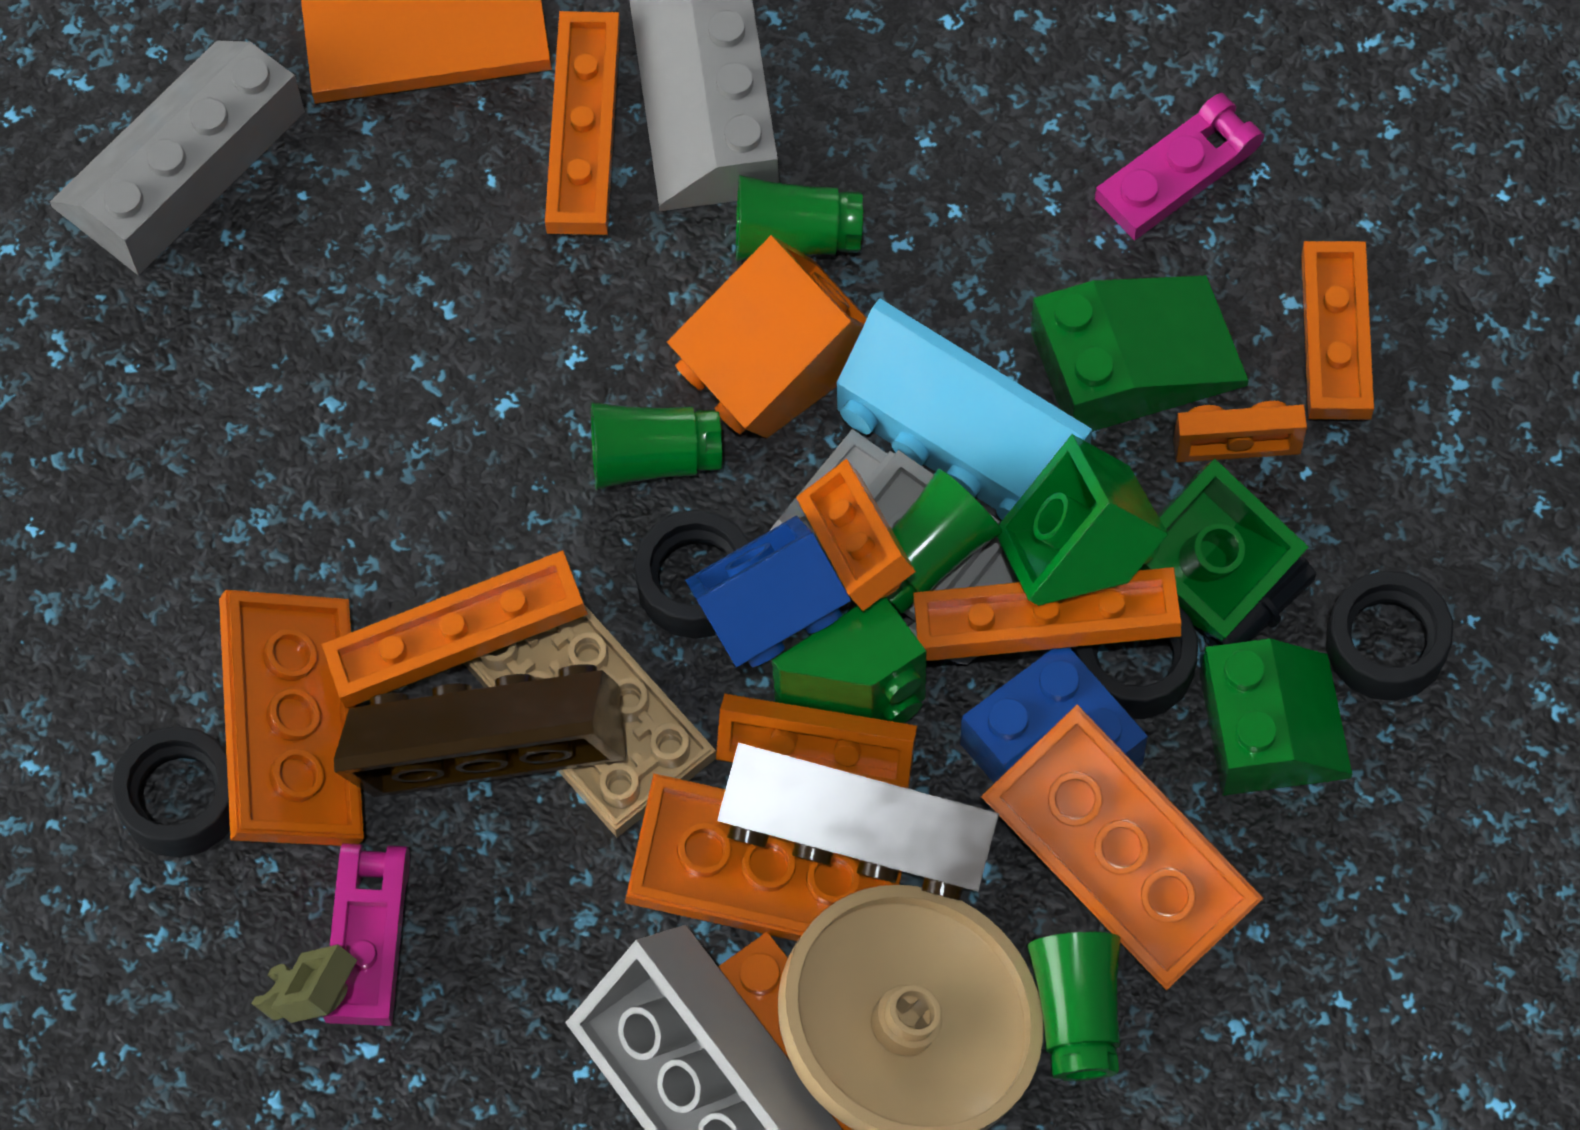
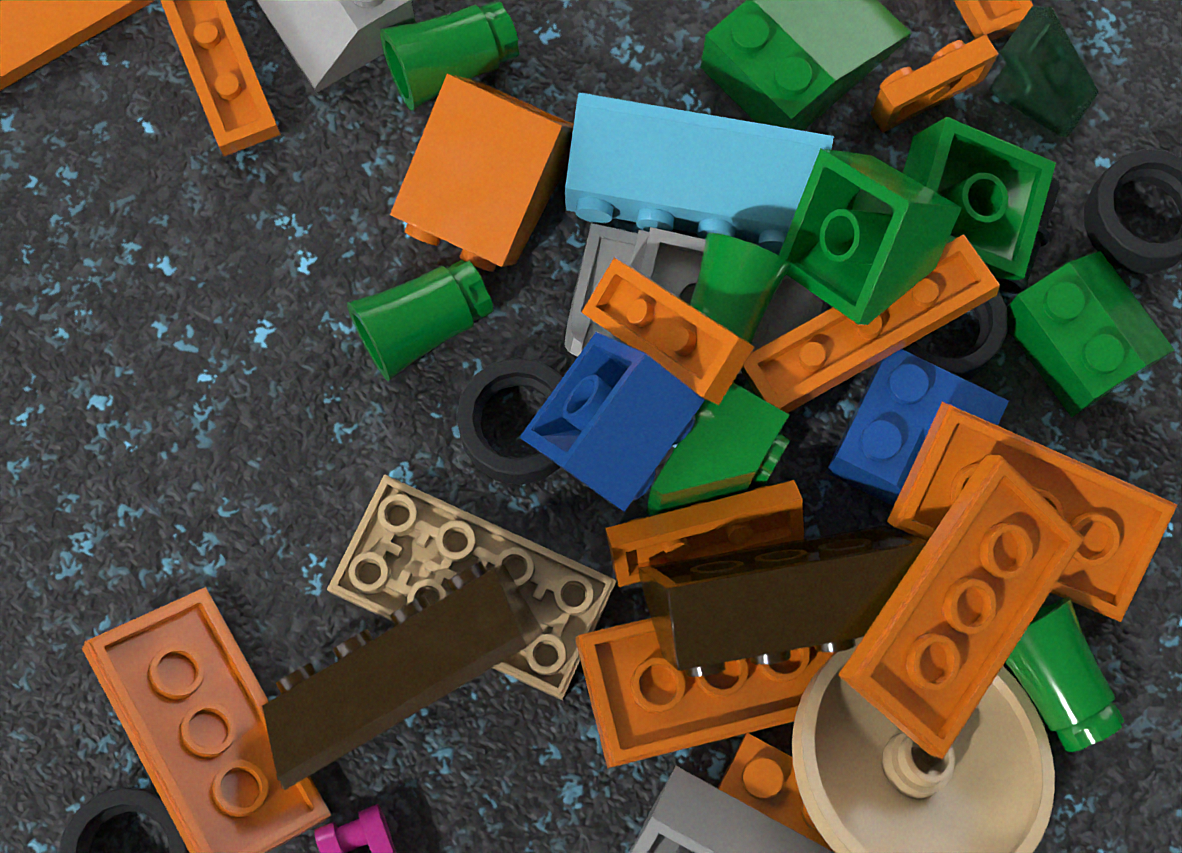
camera: 30 degrees left, 10 degrees up
(454, 629) = (323, 580): orange plate -> none
(1003, 883) = (962, 606): none -> orange tile
(1352, 467) = (1044, 74): none -> clear green slope

